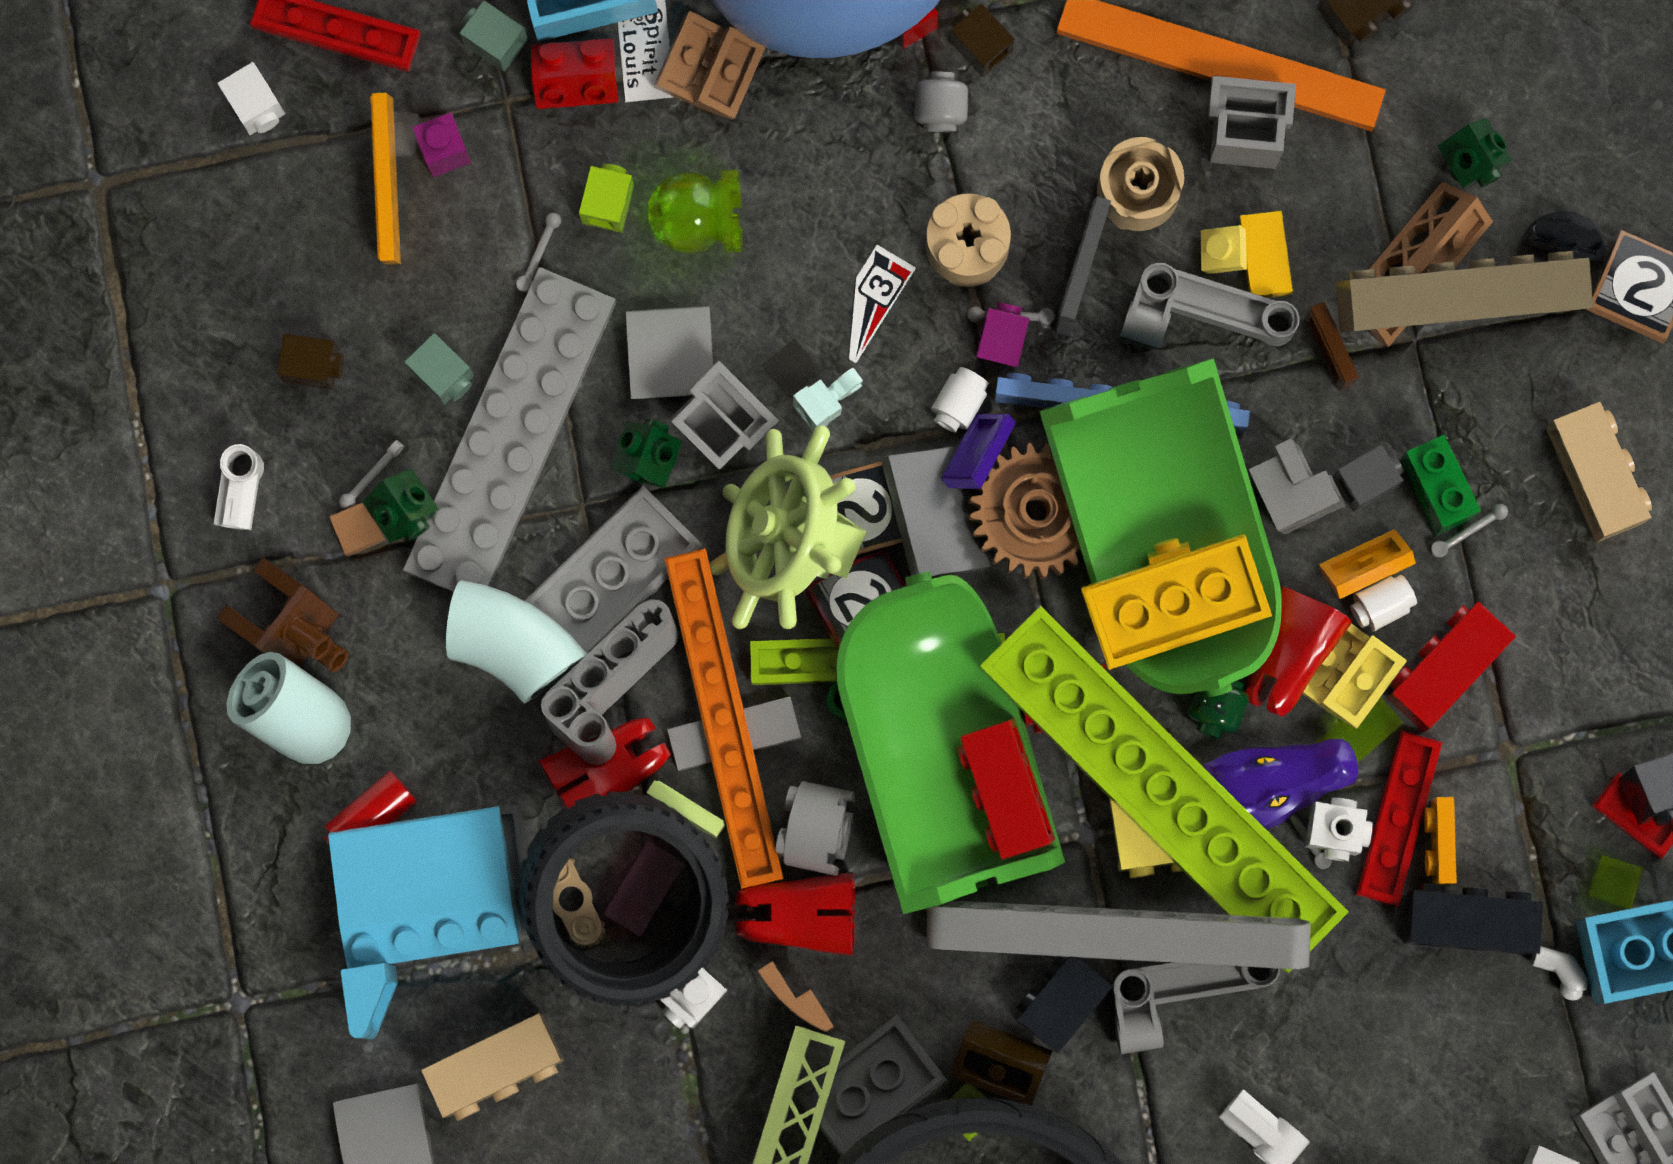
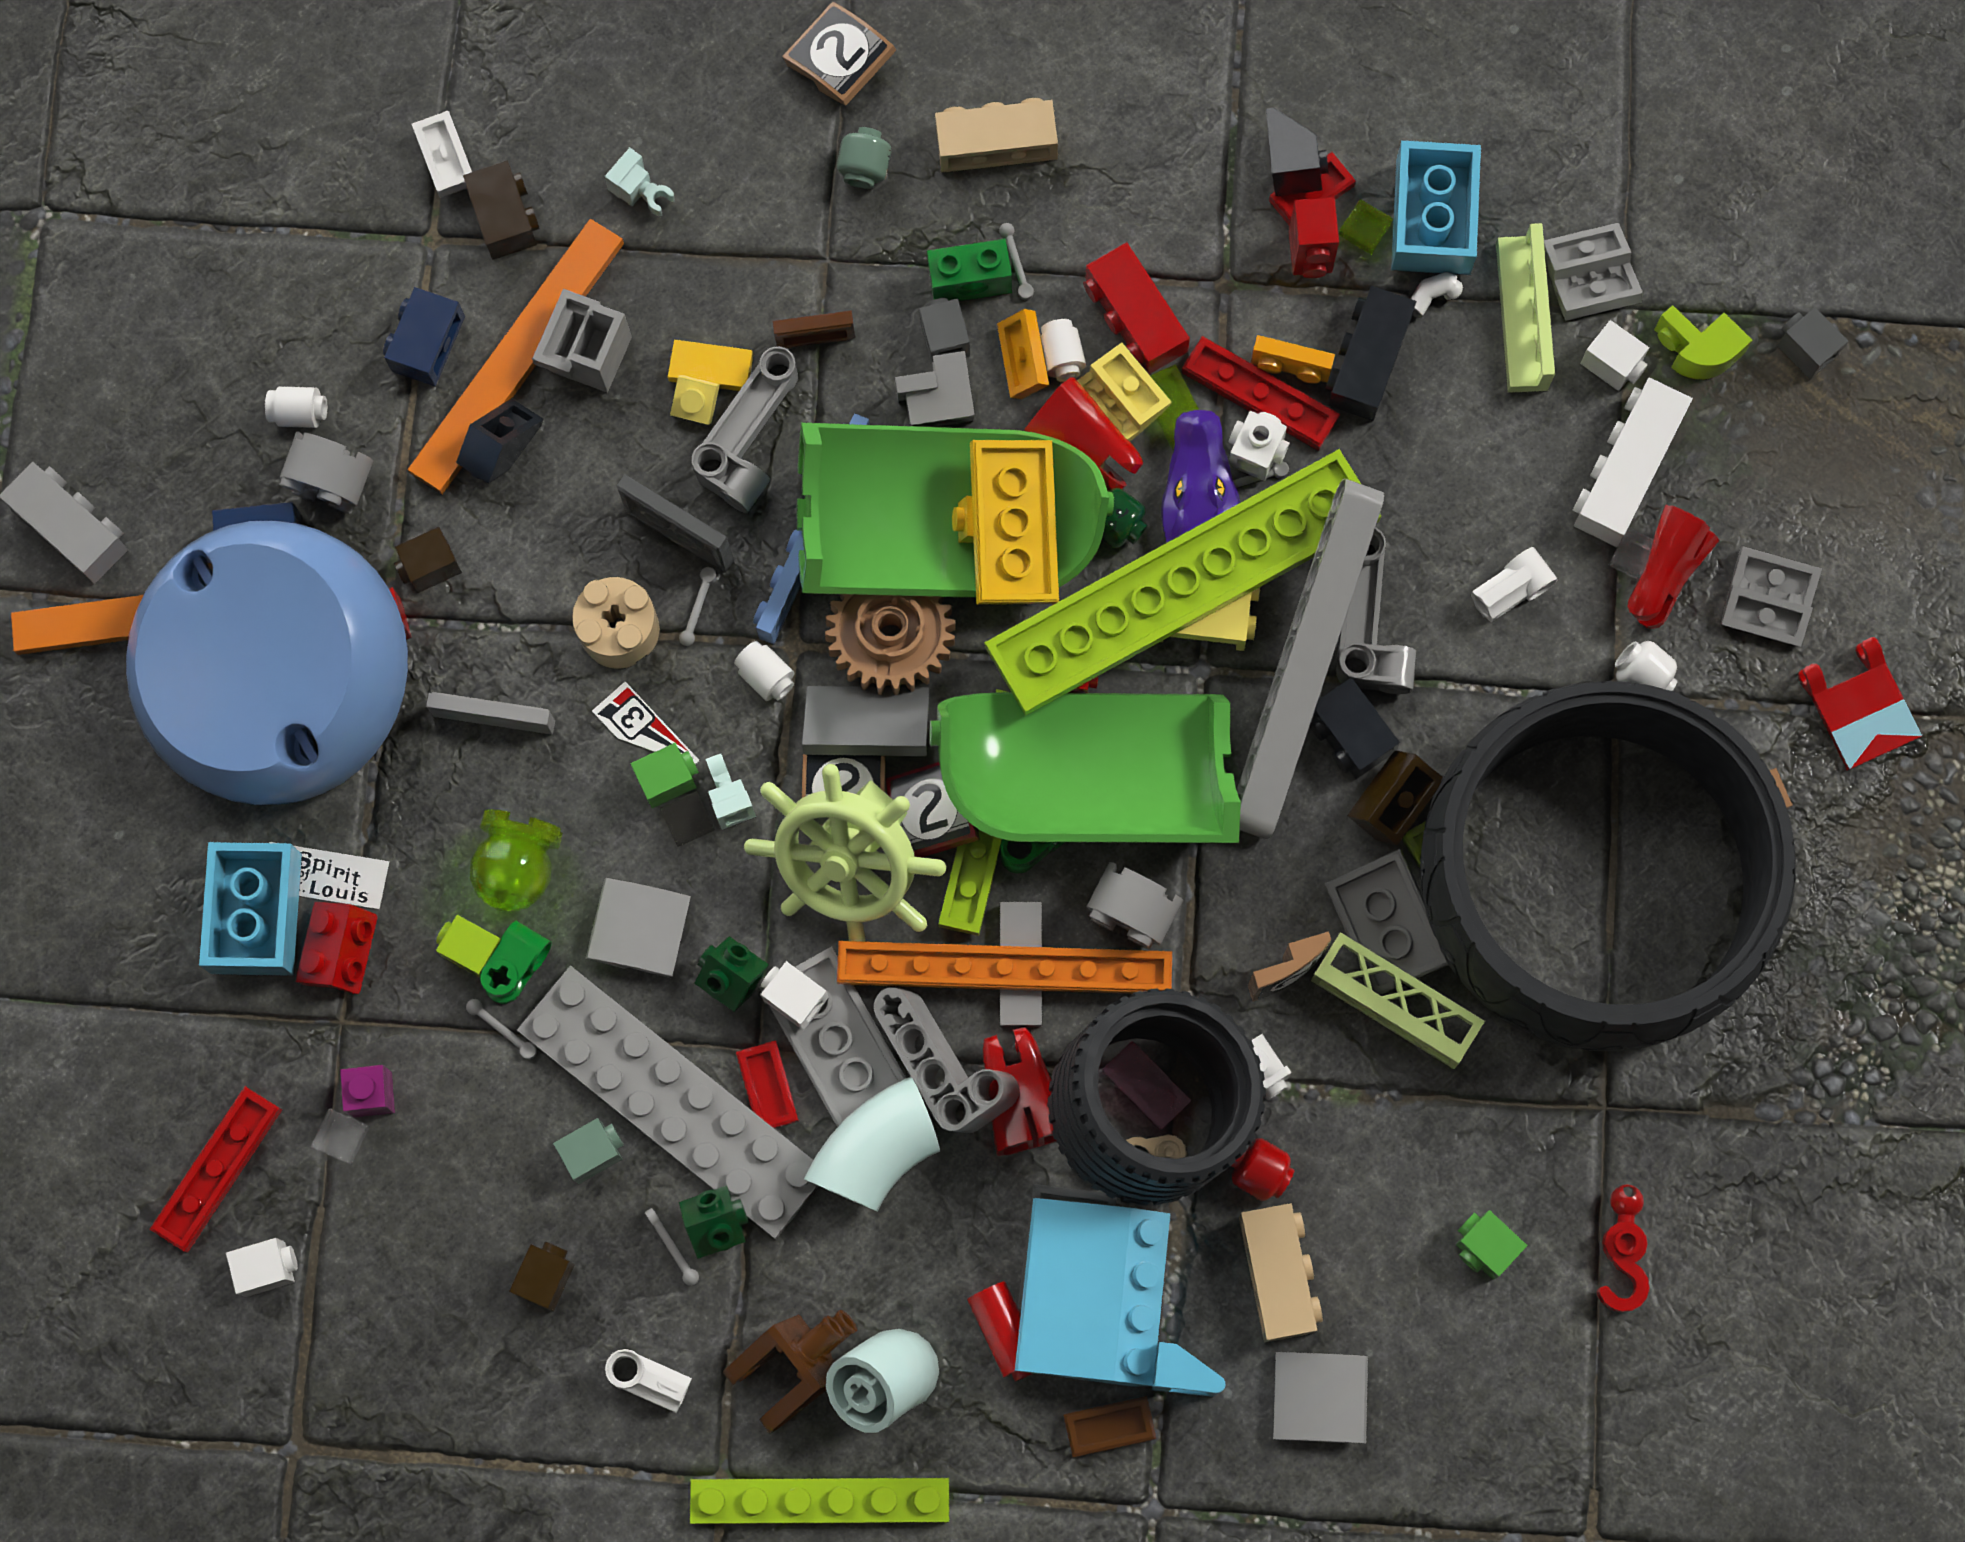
camera: 75 degrees left, 5 degrees down
(168, 684) = (819, 1500): none -> lime plate
(306, 940) = (1109, 1426): none -> reddish brown tile
(356, 529) = (720, 1274): medium nougat tile -> none
(385, 178) = (384, 1153): light orange tile -> none
(492, 35) = (273, 1015): sand green brick -> none
(551, 521) = (767, 1084): none -> red tile
(589, 1025) = (1263, 1170): none -> red head
(609, 244) = (517, 957): none -> green piece
(639, 519) = (793, 994): none -> white brick
(691, 811) = (1080, 1022): yellowish green tile -> none
(709, 66) = (370, 818): medium nougat slope -> none
(722, 416) = (718, 889): light grey plate -> none
(803, 913) = (1210, 940): red piece -> none
(826, 332) = (665, 774): none -> bright green brick
(844, 147) = (490, 713): none -> light grey tile
(941, 102) = (476, 612): light grey head -> none
(978, 451) = (819, 665): dark purple tile -> none
(1002, 335) = (716, 615): magenta brick -> none
(1006, 789) = (1144, 723): red brick -> none
(1124, 69) = (498, 440): none -> black slope
(1152, 165) = (592, 445): tan brick -> none
(1436, 120) = (630, 182): none -> light aqua piece
(1448, 240) = (768, 230): medium nougat fence -> none
(1463, 294) = (803, 199): dark tan brick -> none
(1475, 154) = (676, 156): dark green brick -> none
(1532, 344) = (864, 158): none -> sand green head
(1566, 232) = (772, 103): black plate -> none
(1568, 1071) = (1525, 311): none -> yellowish green fence
(1578, 828) = (1313, 237): none -> red brick

